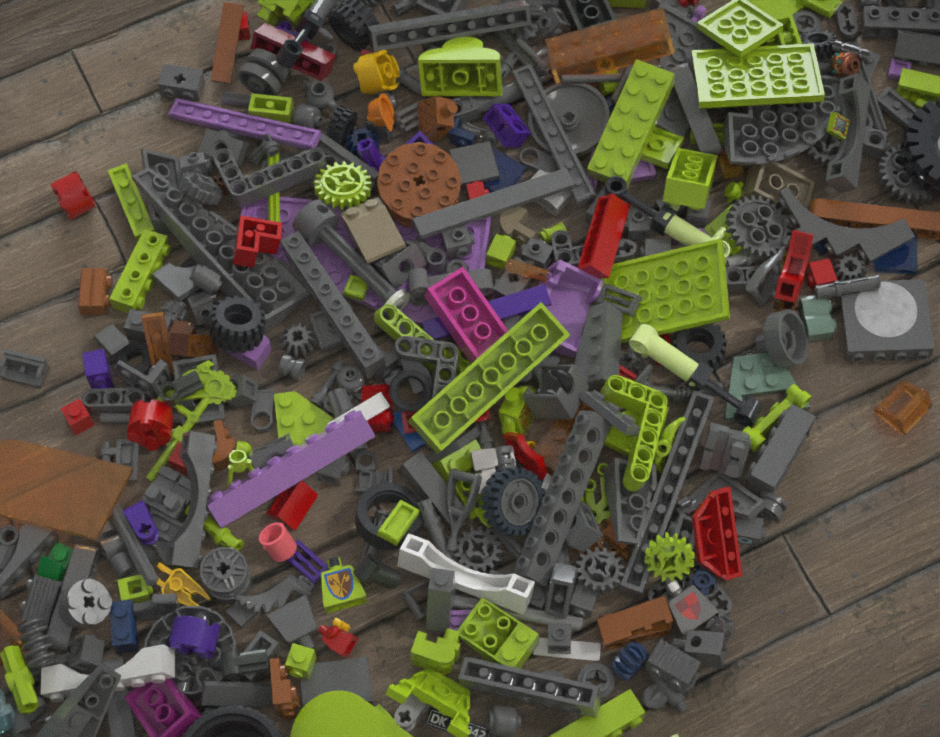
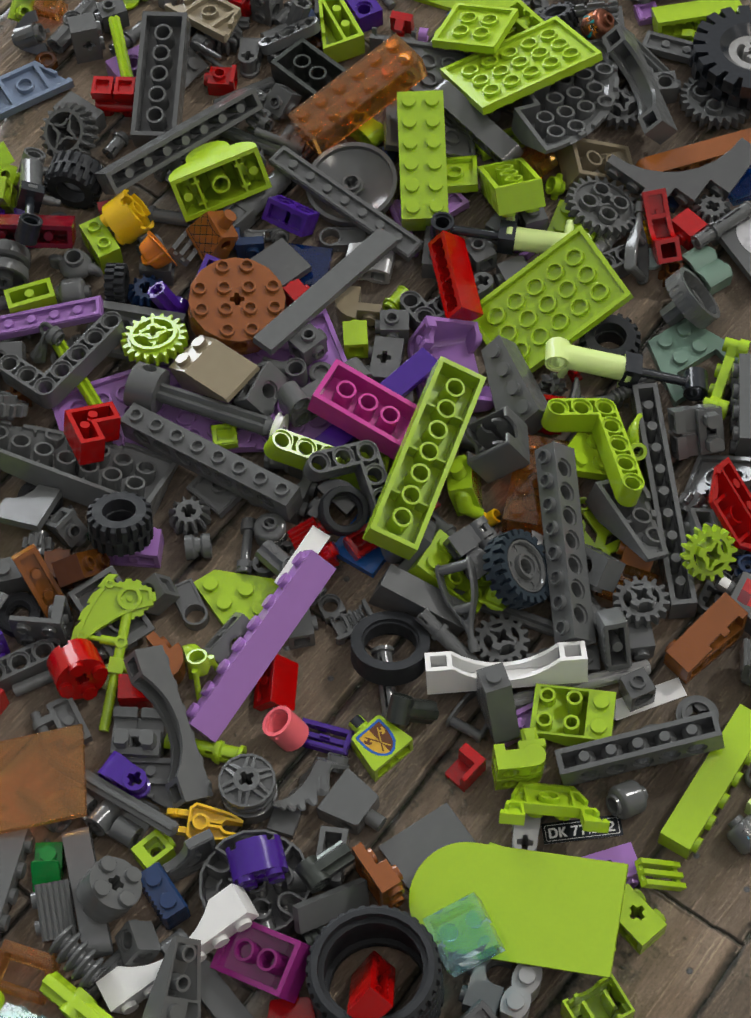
camera: 25 degrees left, 5 degrees down
(183, 388) = (95, 612): pearl dark grey piece -> none
(205, 278) = (58, 493): dark grey brick -> none
(300, 661) = (382, 837): lime brick -> none
(338, 639) = (405, 798): red piece -> none
(348, 86) = (100, 243): none -> lime brick
(396, 637) = (466, 767): none -> red panel
(398, 522) = (407, 647): lime tile -> none
(525, 454) = (499, 521): red tile -> none
(526, 270) = (395, 342): clear orange axle -> none
(578, 78) = (354, 134): dark grey bar -> none
(610, 412) = (567, 437): dark grey plate -> none
(630, 661) = (722, 677): dark blue gear -> none
(632, 305) = (524, 331): dark grey tile -> none
(838, 126) = (625, 81): tile -> none

